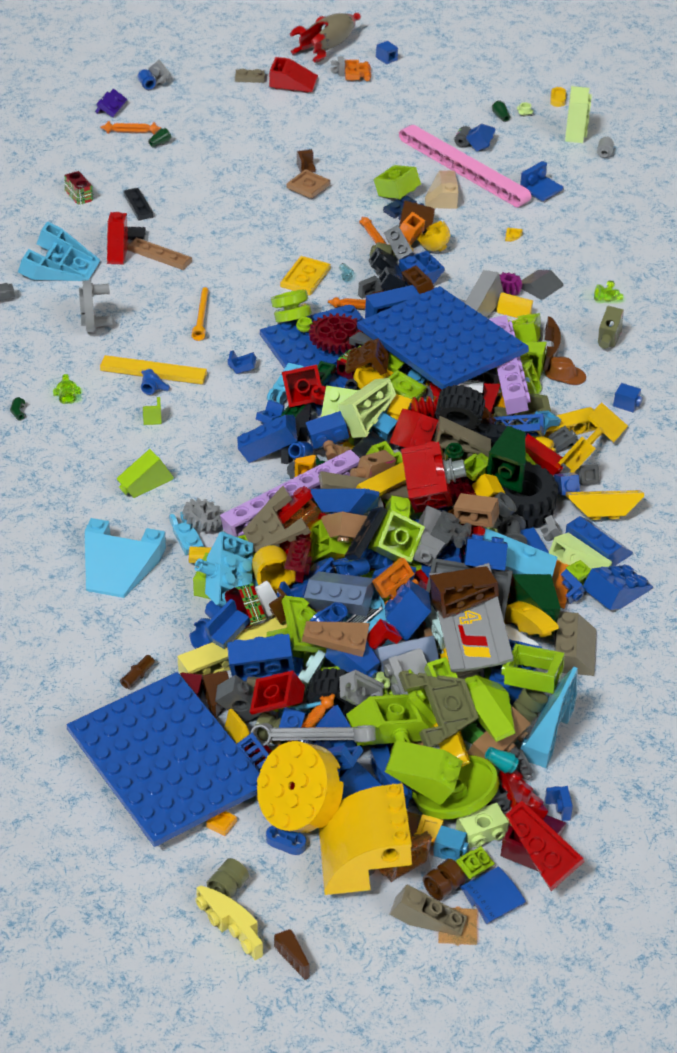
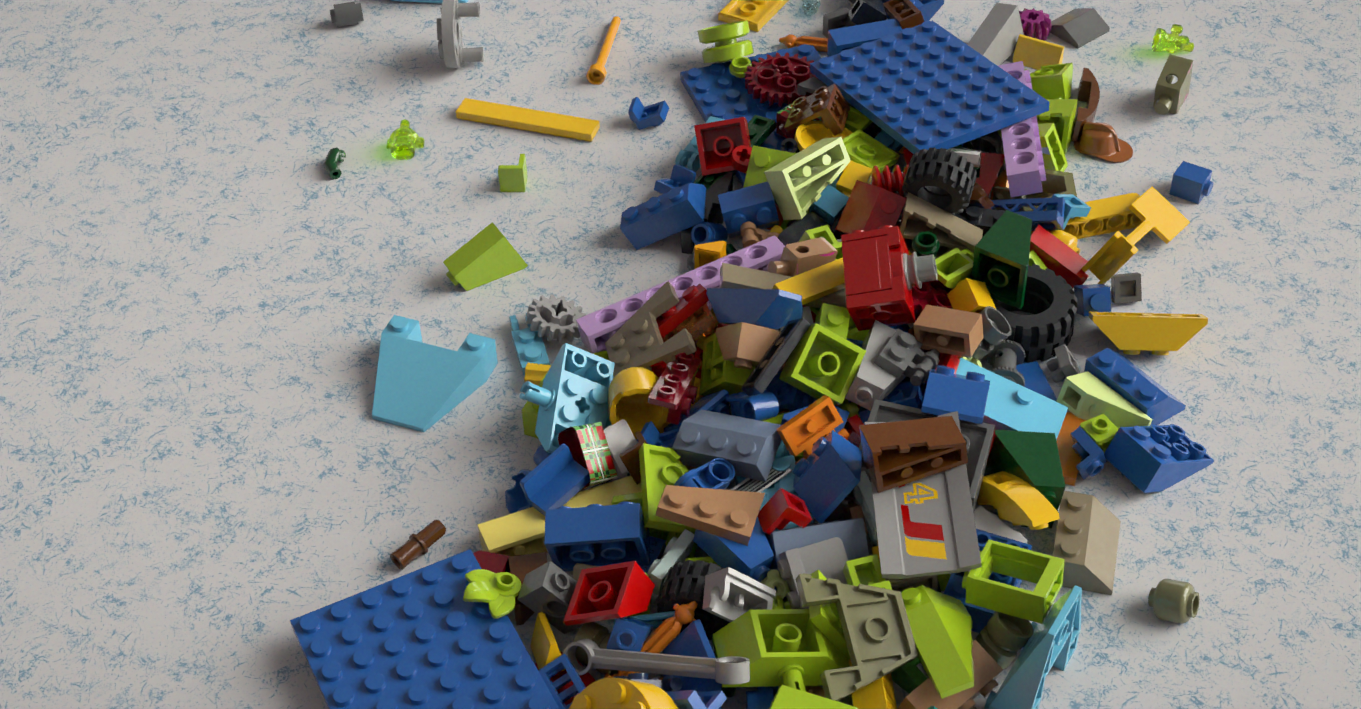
camera: 10 degrees right, 0 degrees up
(152, 382) = (521, 135): blue animal -> none
(201, 695) = (493, 588): none -> lime plate
(563, 438) = (1091, 235): dark grey bracket -> none
(633, 676) = (1174, 601): none -> olive head

